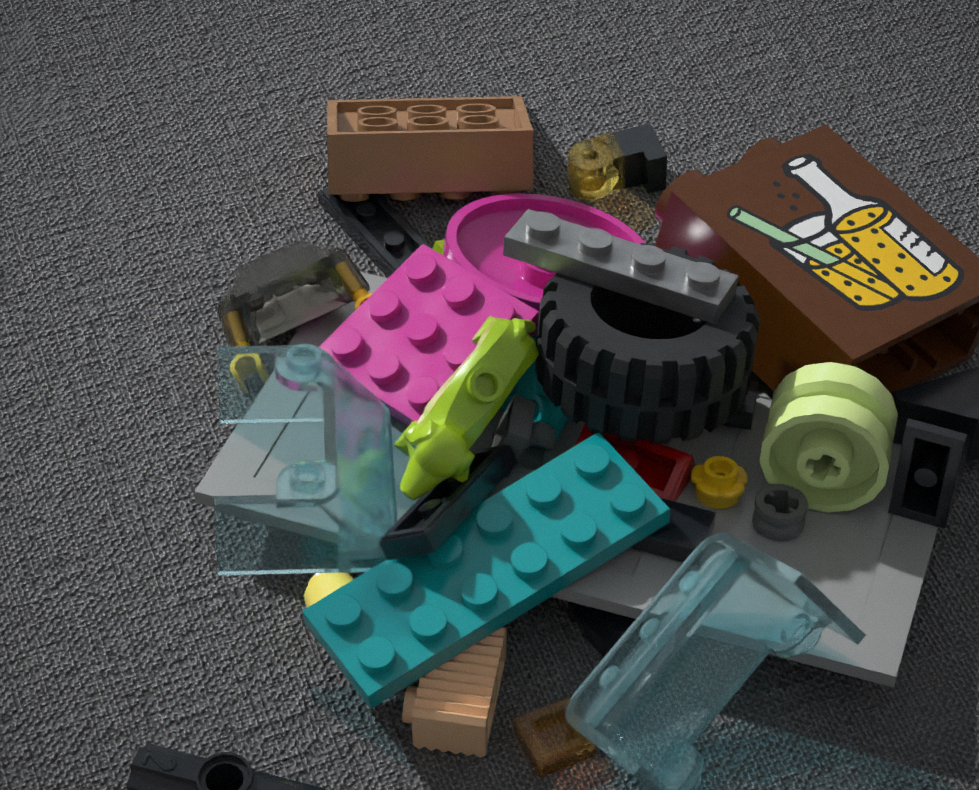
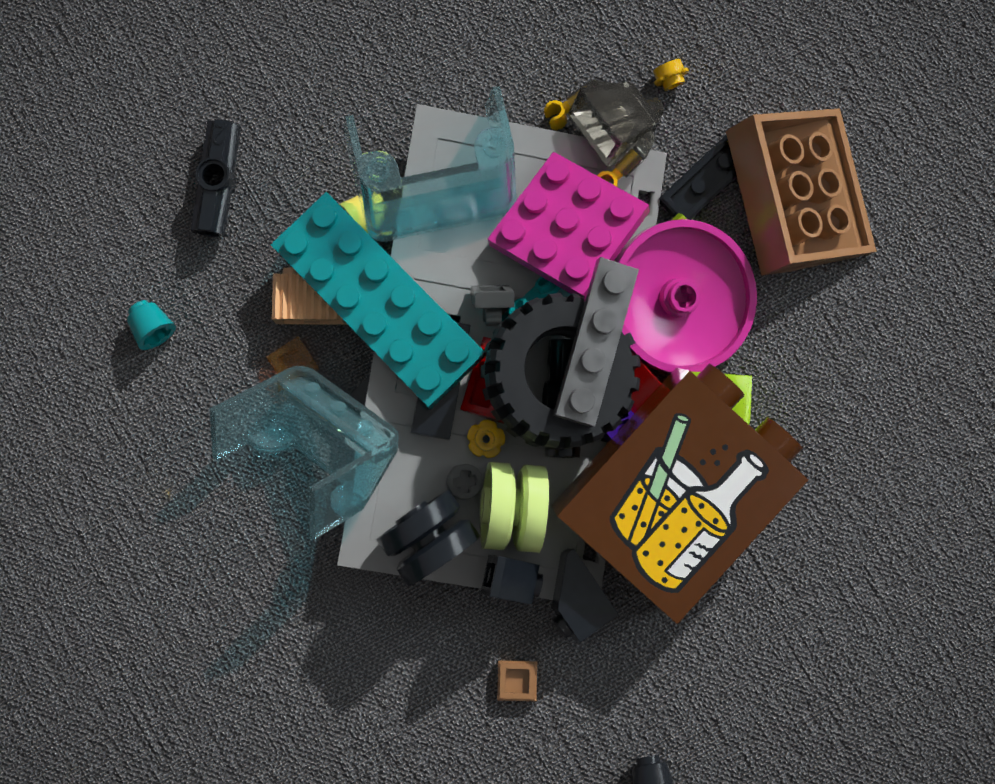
camera: 85 degrees right, 35 degrees up
(231, 245) = (670, 74): none -> yellow plate
(447, 505) = (417, 265): black tile -> none
(465, 405) = (485, 259): lime animal -> none
(617, 162) = (807, 331): leg -> none
(868, 528) = (425, 533): none -> black wheel

